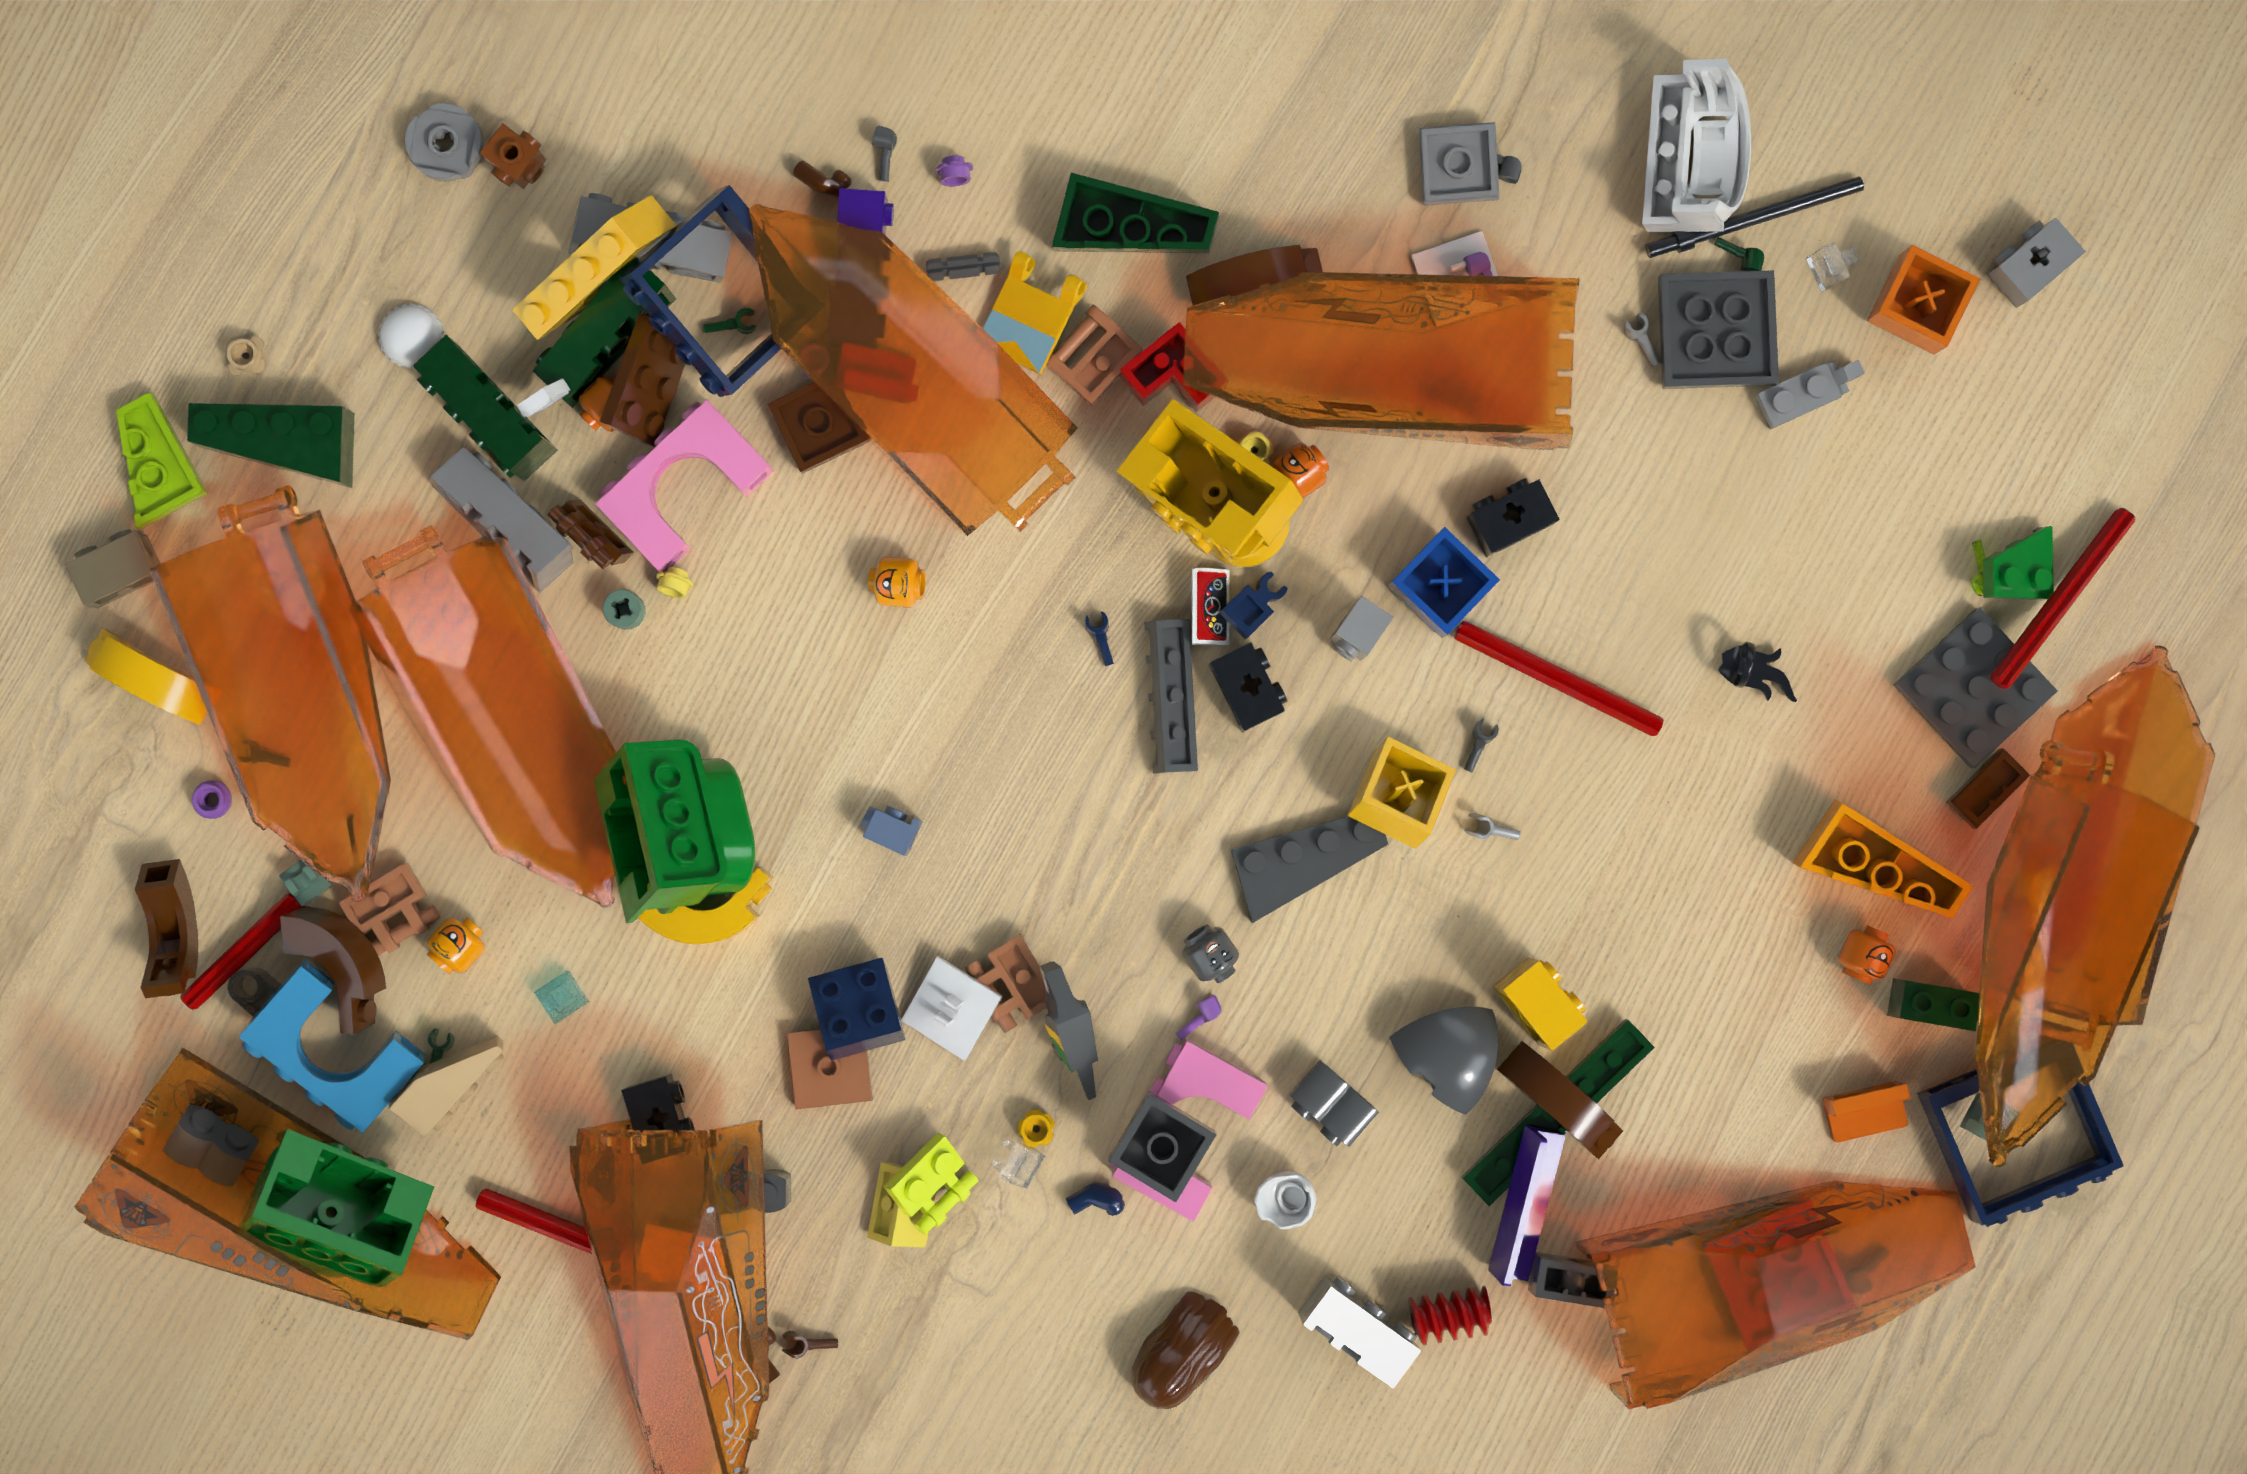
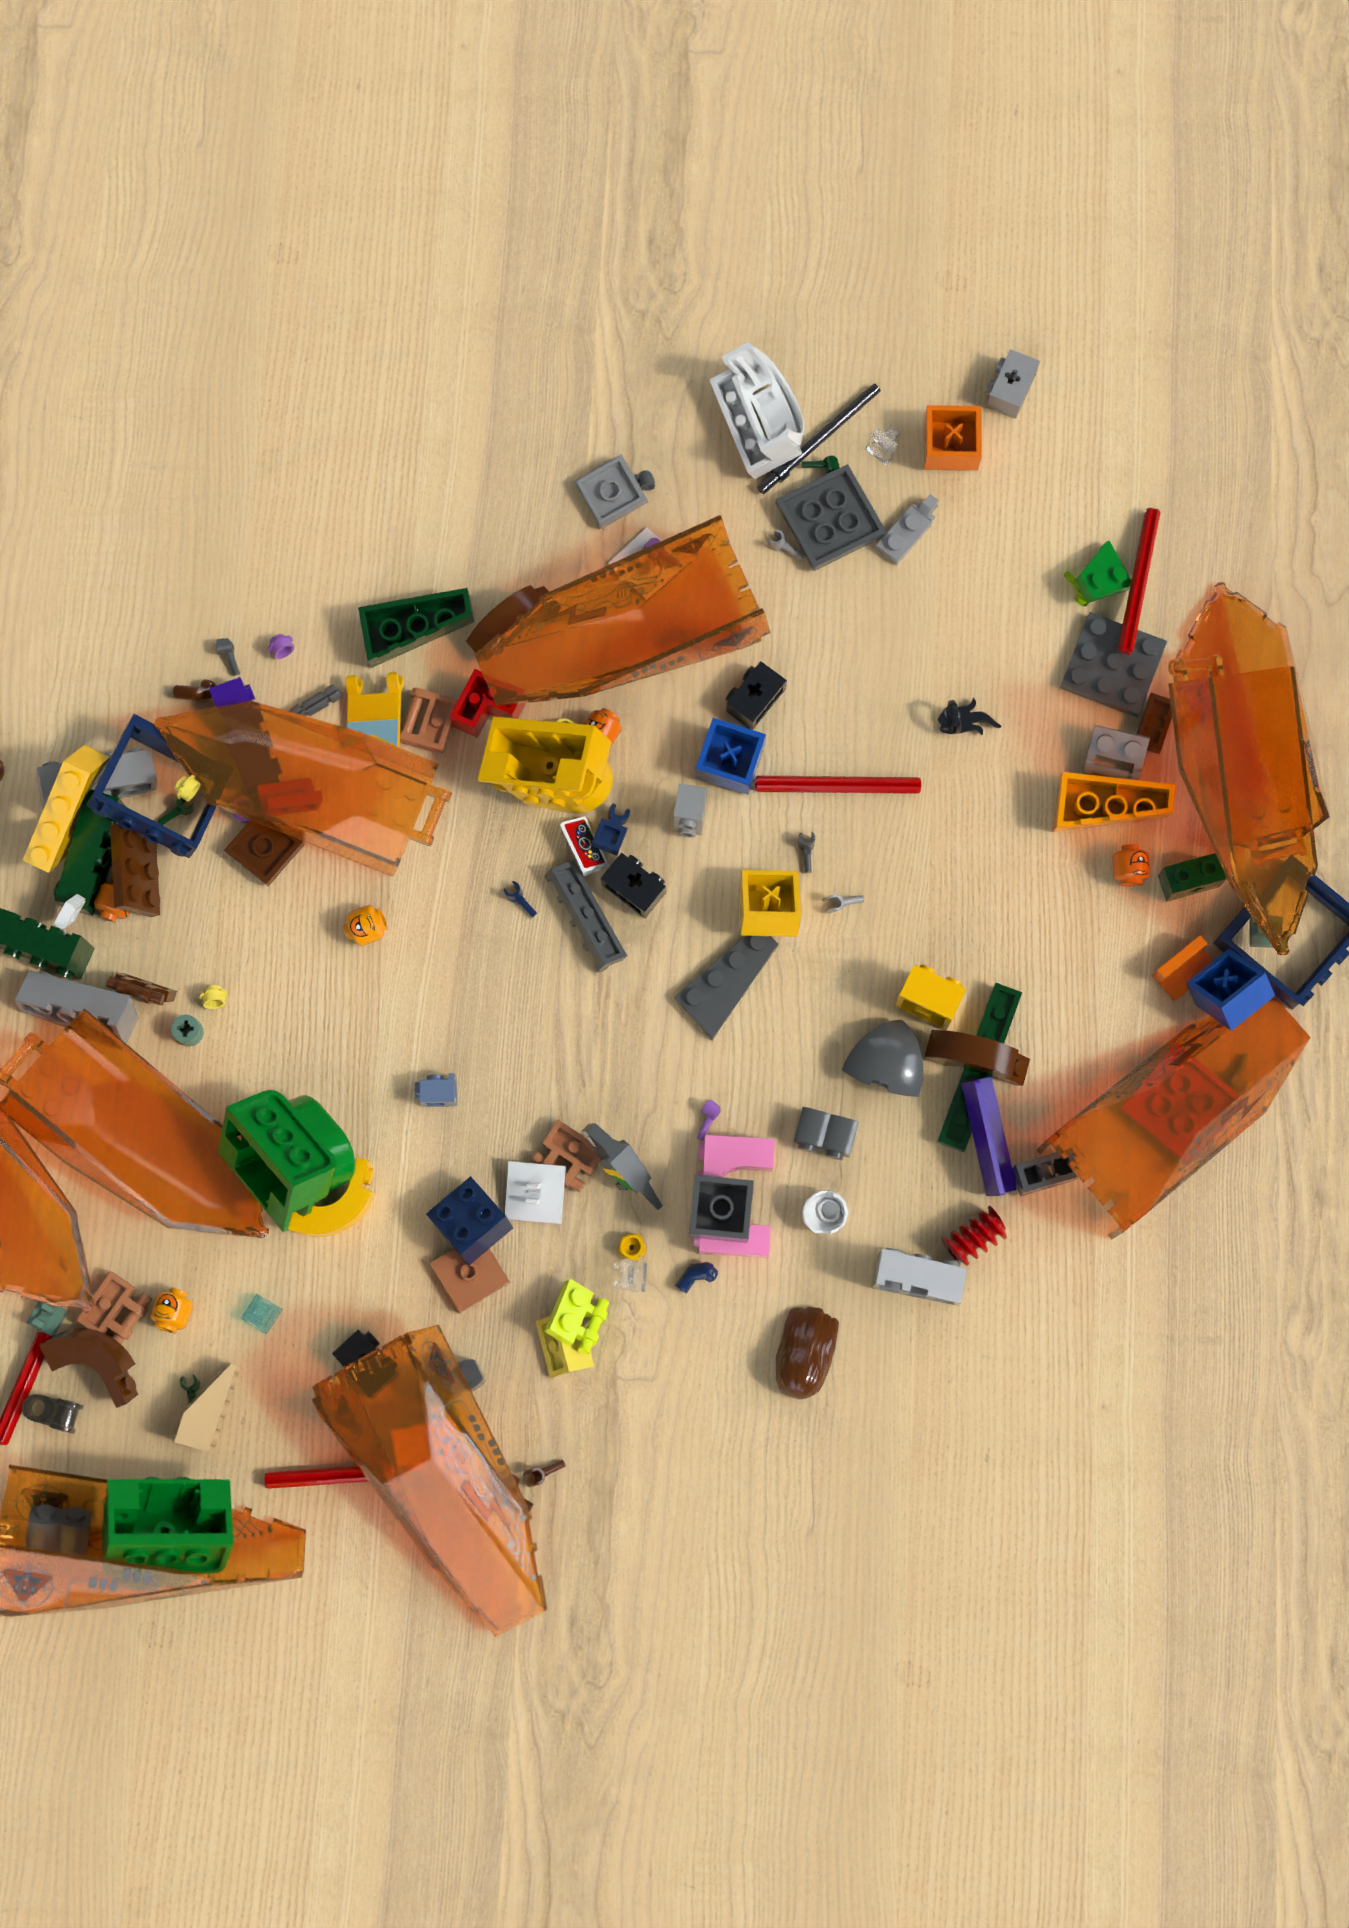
camera: 15 degrees left, 10 degrees down
(353, 1095) = (147, 1448): dark azure arch -> none
(633, 502) = (188, 891): bright pink arch -> none
(754, 311) = (187, 787): none -> light yellow plate
(1210, 954) = (694, 1071): dark grey head -> none
(1909, 1168) = (1230, 989): none -> blue brick
(1925, 796) = (1118, 746): none -> light grey plate

